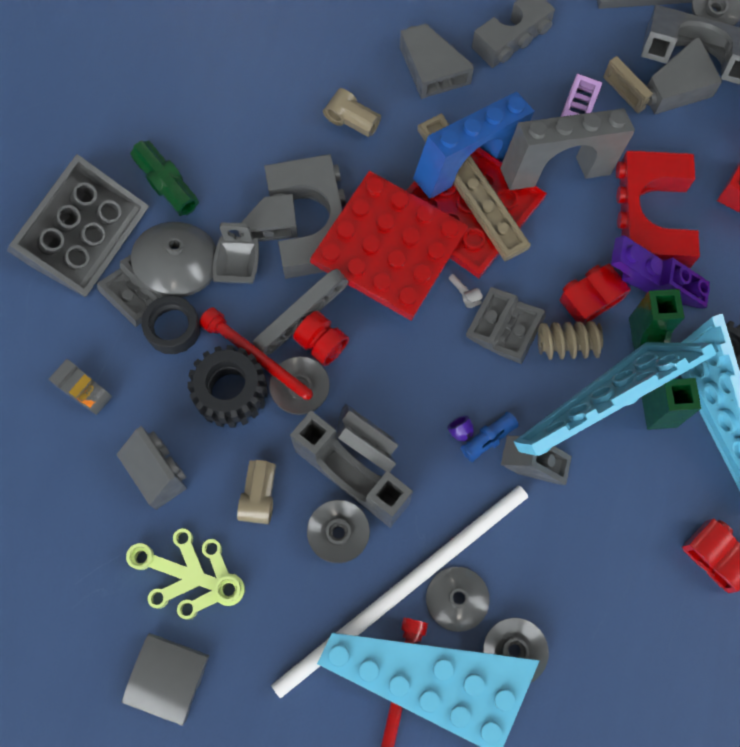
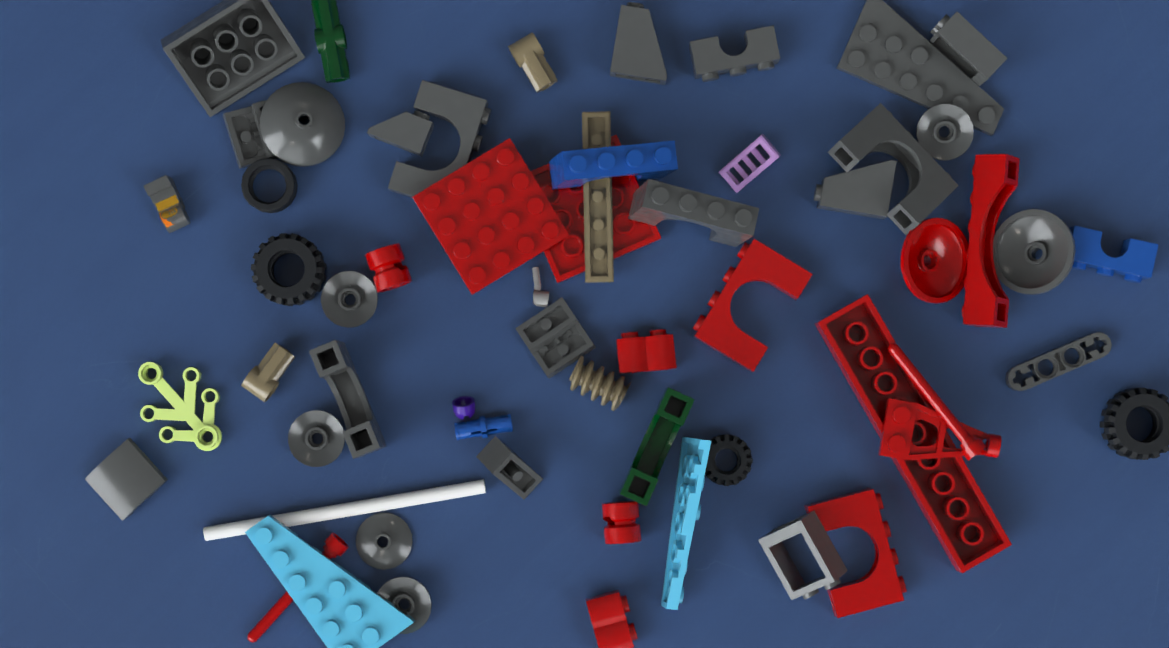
camera: 35 degrees right, 15 degrees up
(149, 468) = (193, 307): dark grey slope -> none
(214, 322) = (307, 203): red piece -> none
(236, 256) = (354, 154): dark grey piece -> none
(313, 300) = (381, 238): dark grey beam -> none
(366, 438) = (376, 378): dark grey slope -> none
(620, 386) = (613, 450): medium azure wing -> none
(627, 84) = (804, 169): dark tan tile -> none
(651, 273) = (709, 368): dark purple slope -> none
(671, 453) = (621, 522): none -> red wheel

